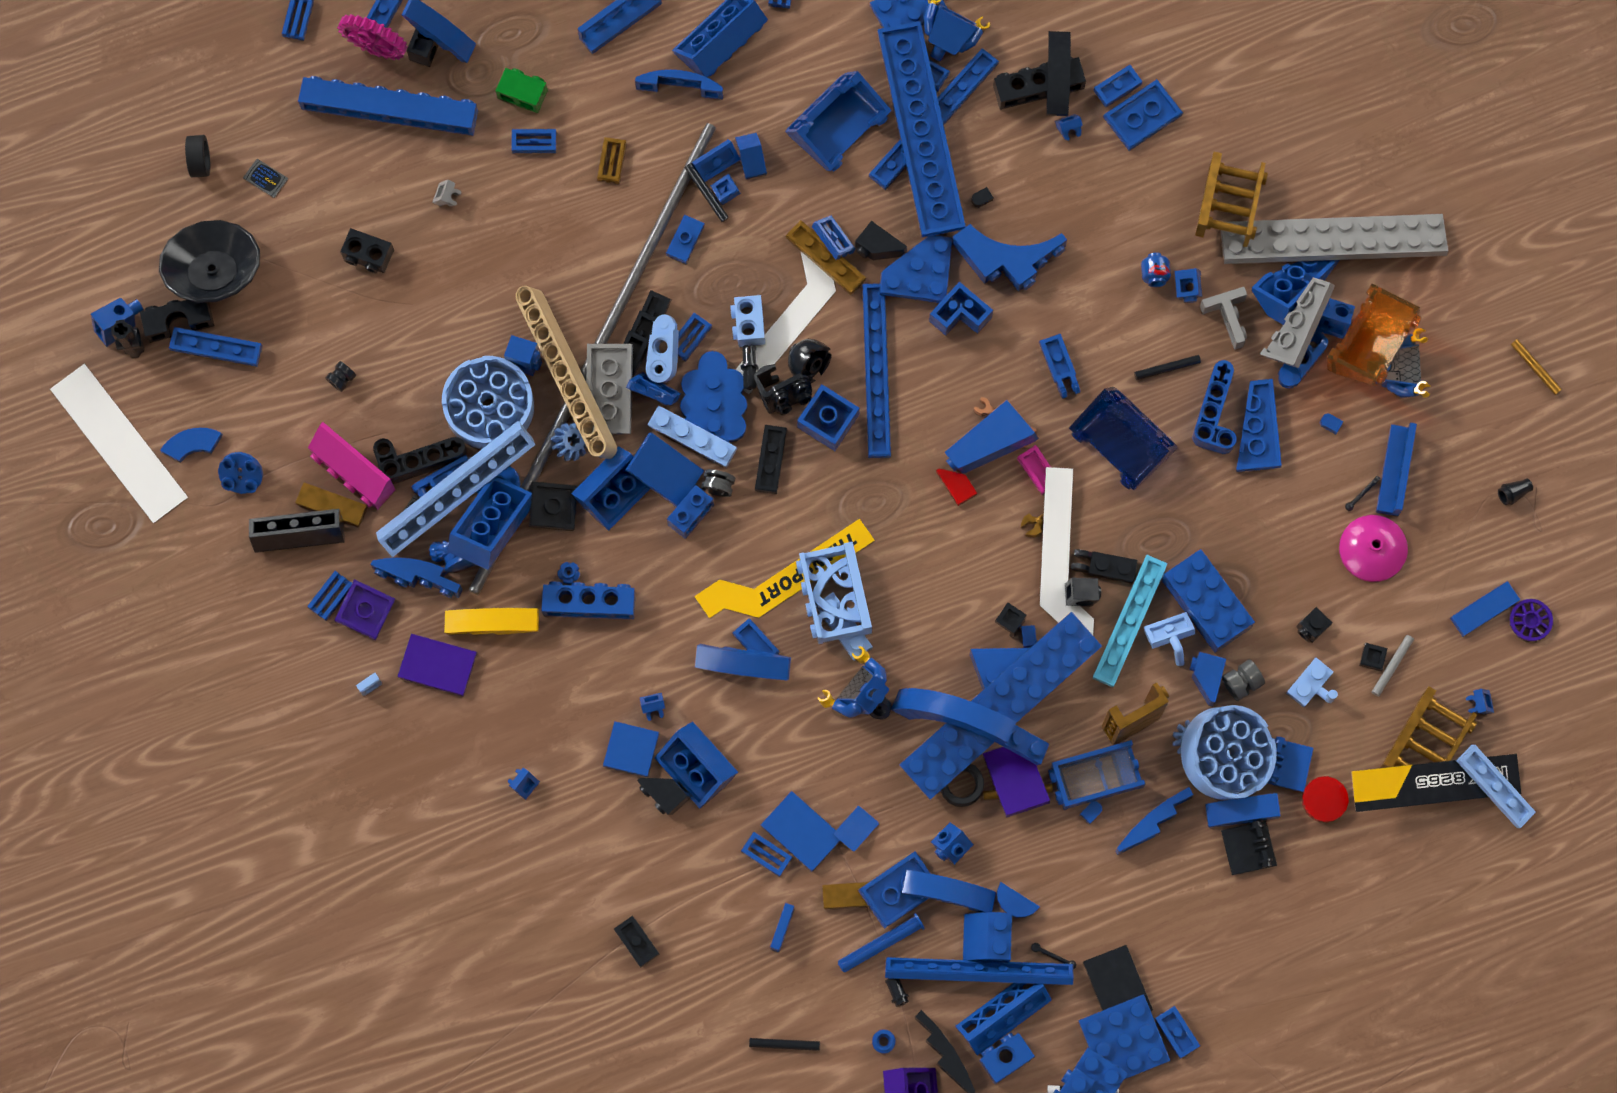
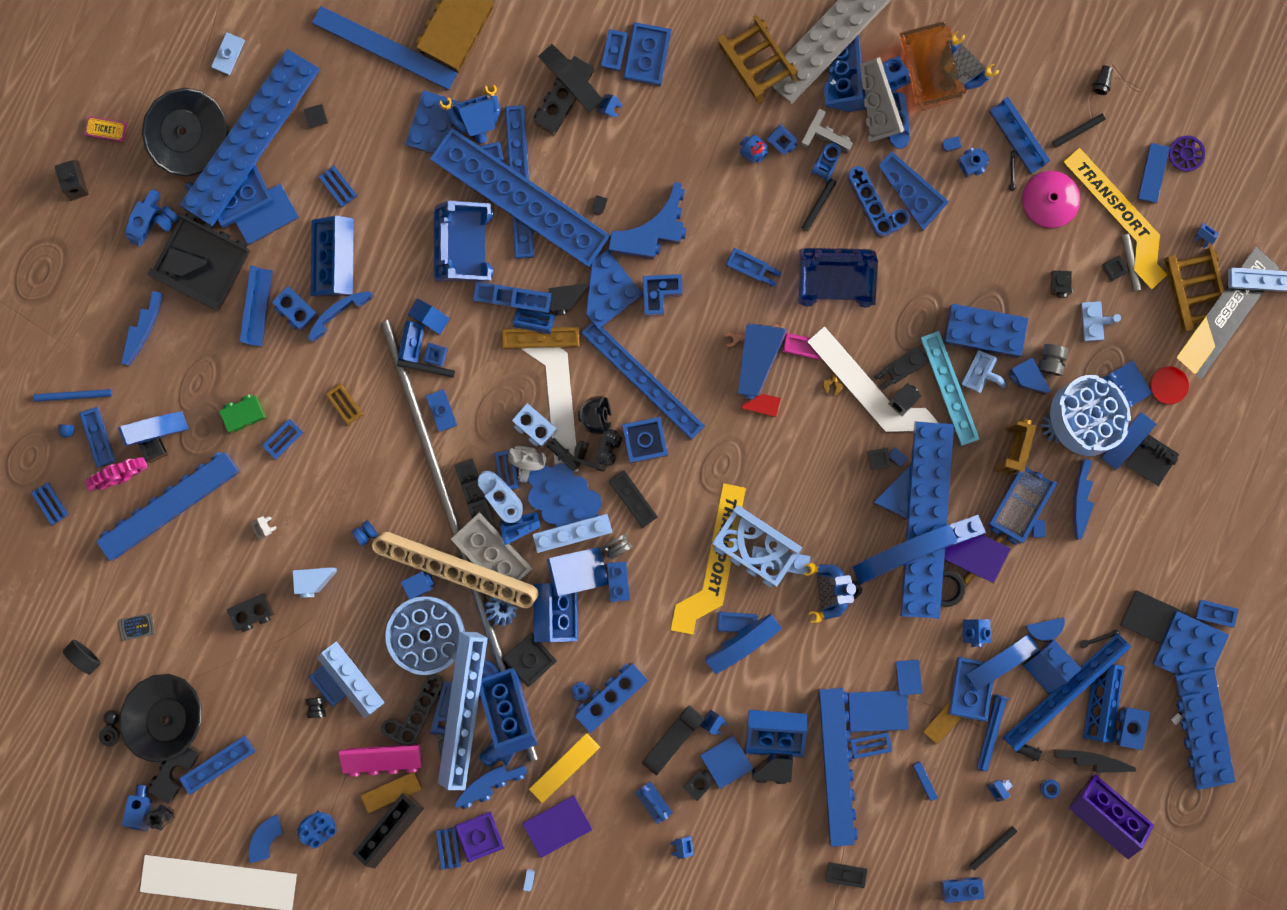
camera: 45 degrees left, 10 degrees up
(169, 229) = (110, 718): none -> black plate
(369, 370) = (327, 686): none -> blue tile
(391, 380) = (350, 680): none -> light blue brick
(442, 270) = (311, 580): none -> light blue slope
(523, 275) = (361, 536): none -> blue wheel
(536, 722) = (653, 802): none -> blue hinge
(581, 736) = (698, 793): none -> black brick
(605, 685) = (673, 739): none -> black beam
(651, 47) = (297, 305): none -> blue brick
(714, 339) = (526, 459): none -> light grey tile
(719, 841) = (836, 766): none -> blue brick
(722, 1050) = (962, 889): none -> blue brick
(834, 201) = (512, 297): none -> blue slope
(839, 997) = (1000, 789): none -> blue tile
(1203, 338) = (825, 165): none -> blue piece
(1334, 452) = (968, 166): none -> blue brick
(1427, 620) = (1126, 215): none -> yellow sticker
(1453, 513) = (1079, 130): none -> black bar

